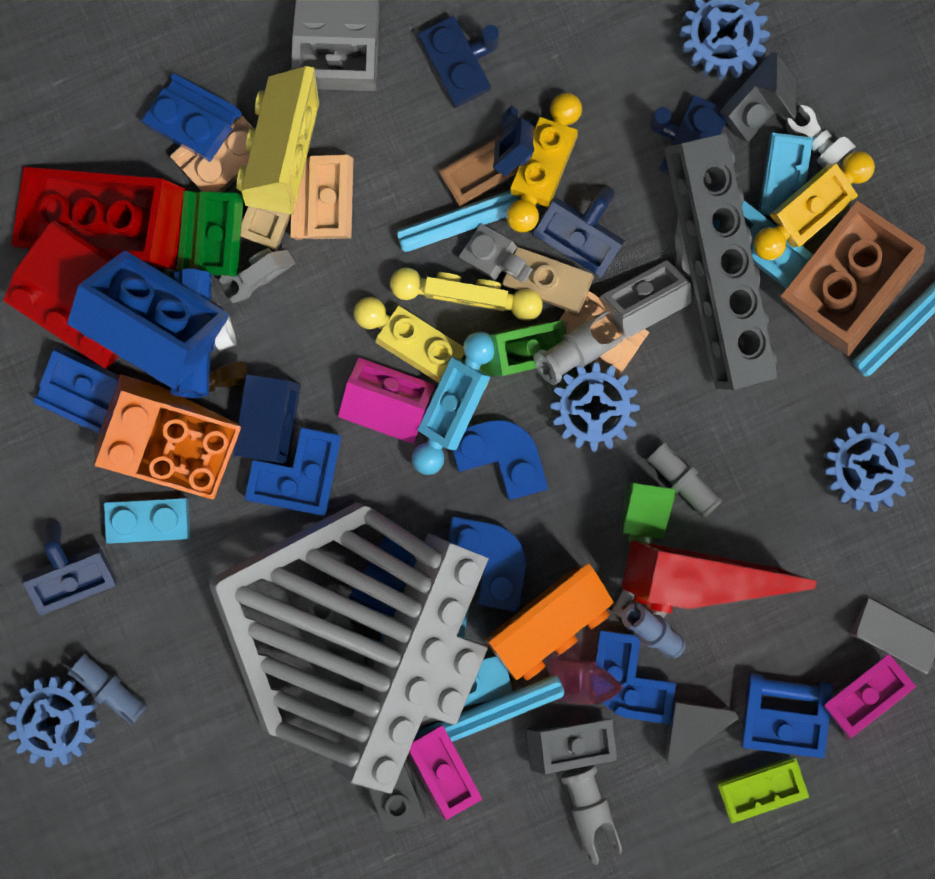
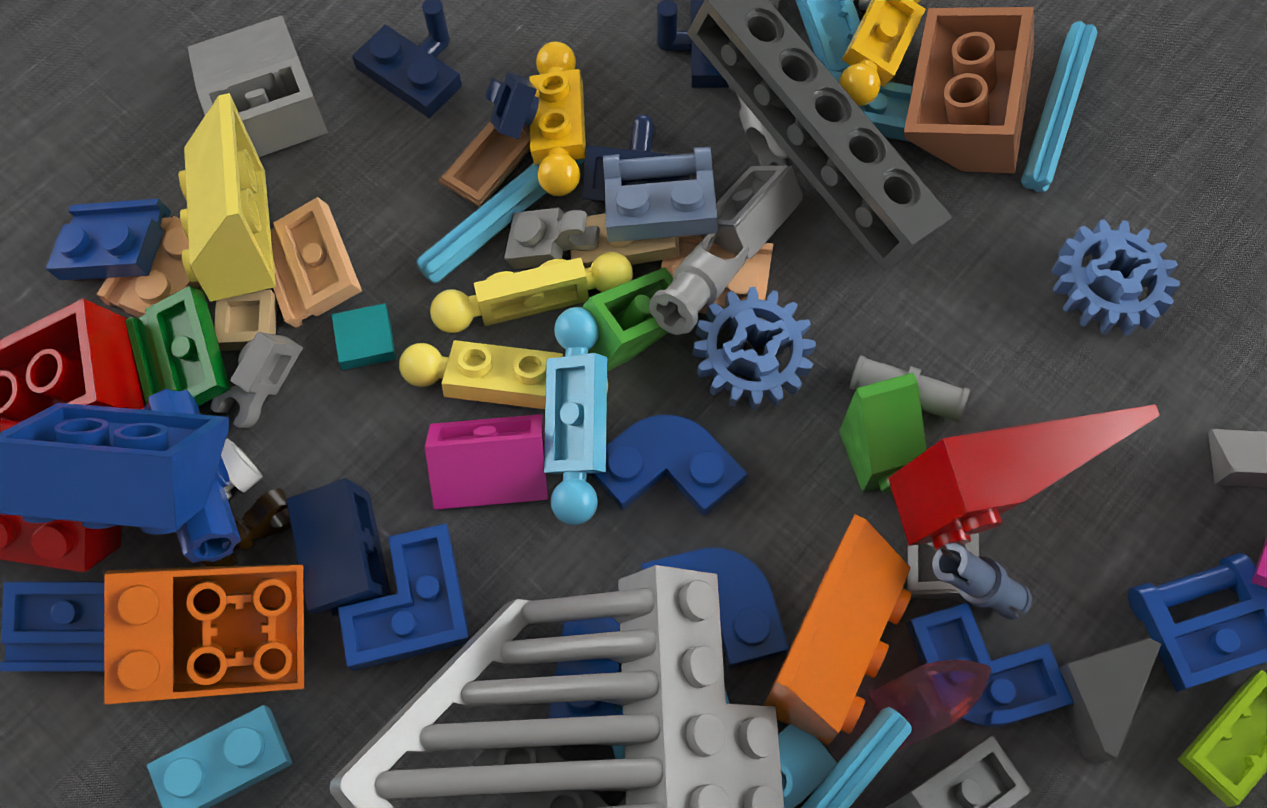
camera: 25 degrees left, 20 degrees down
(339, 271) = (363, 336): none -> teal tile
(579, 279) = (660, 207): none -> sand blue plate

